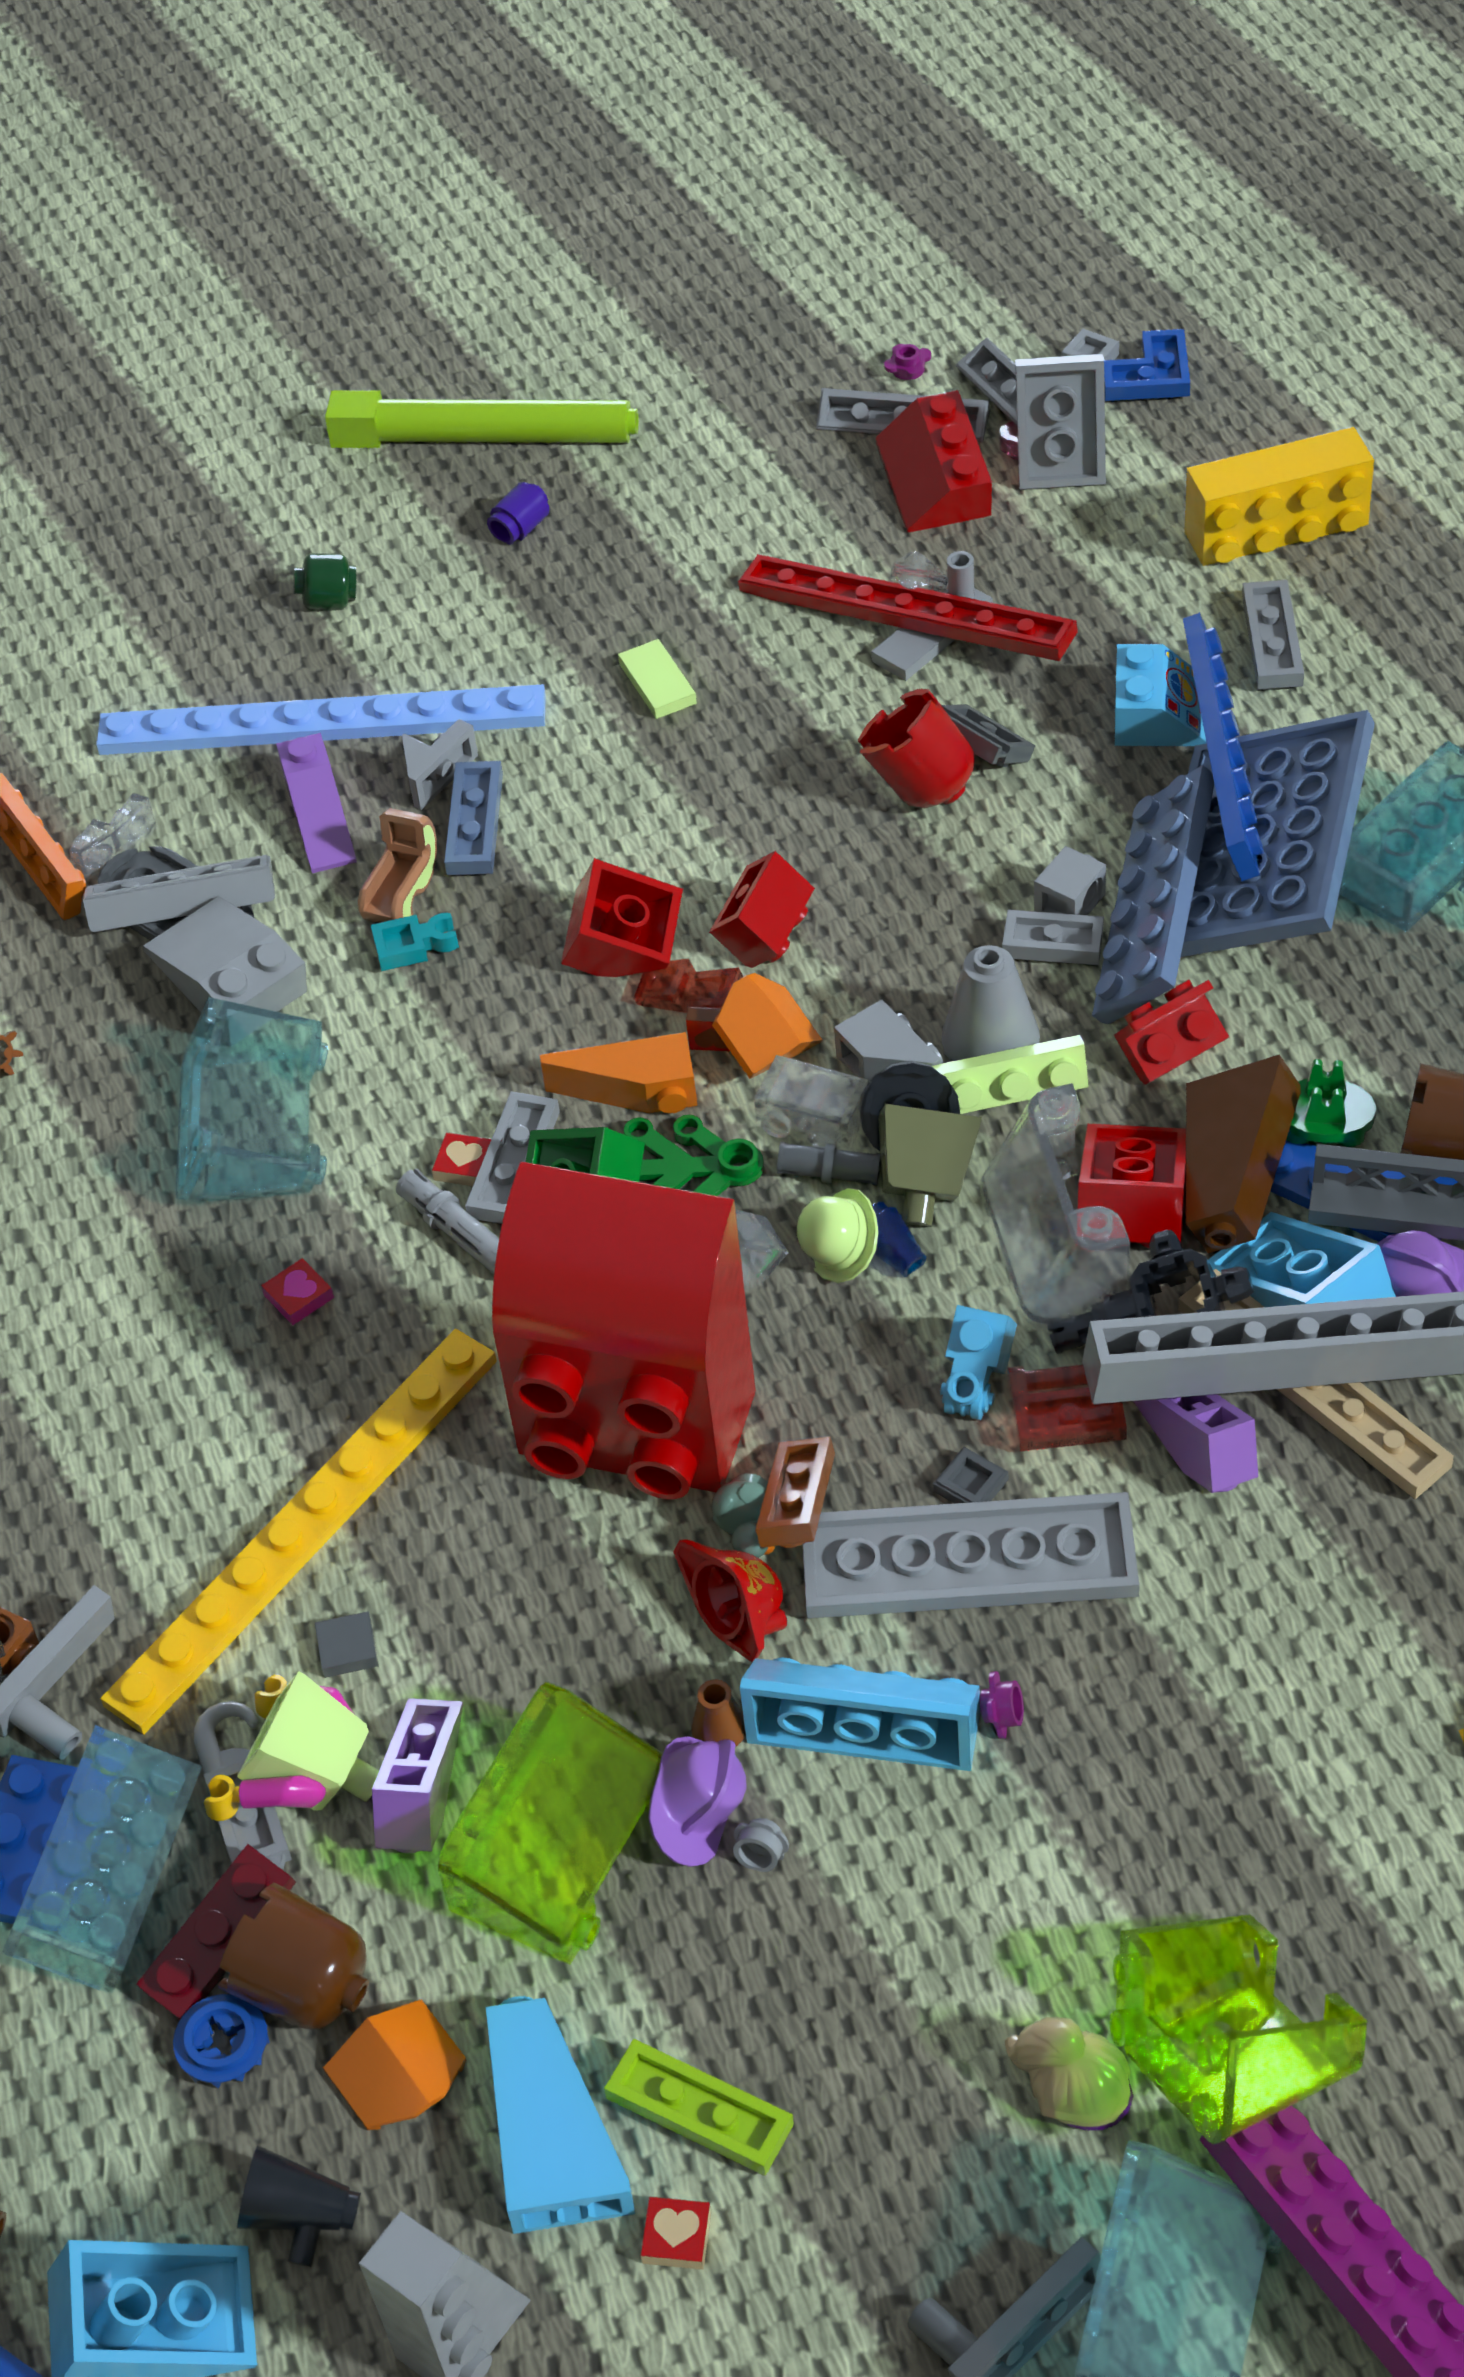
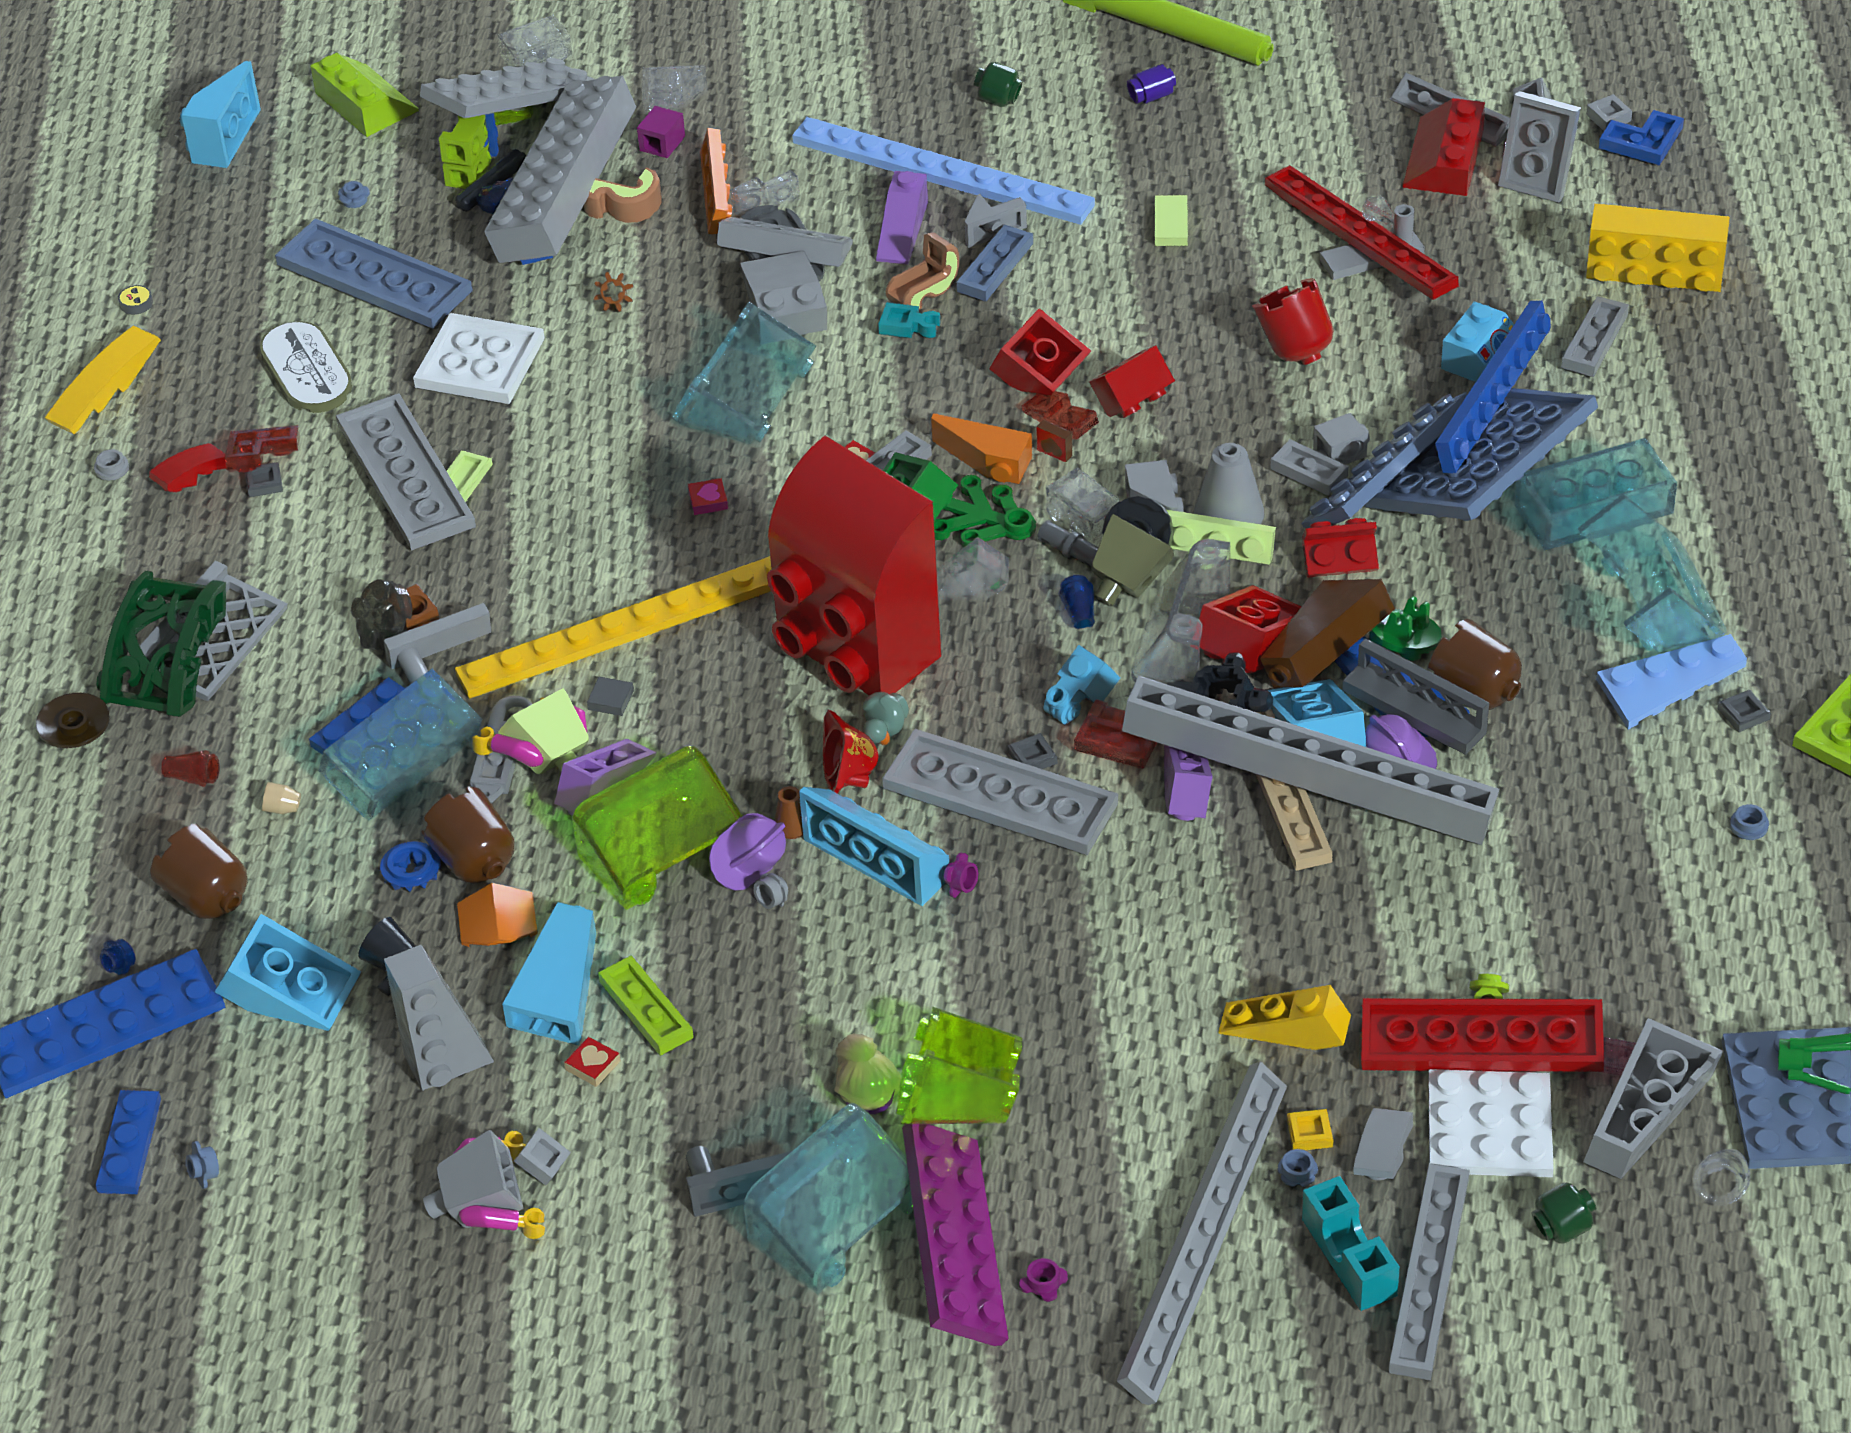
camera: 25 degrees right, 5 degrees down
(192, 1959) = (409, 821): dark red plate -> none
(763, 1022) = (1086, 444): orange slope -> none
(795, 1492) = (916, 713): dark orange plate -> none
(839, 1234) = (1044, 583): yellowish green hat -> none
(907, 361) = (1481, 76): magenta plate -> none
(989, 738) = (1353, 329): dark grey plate -> none

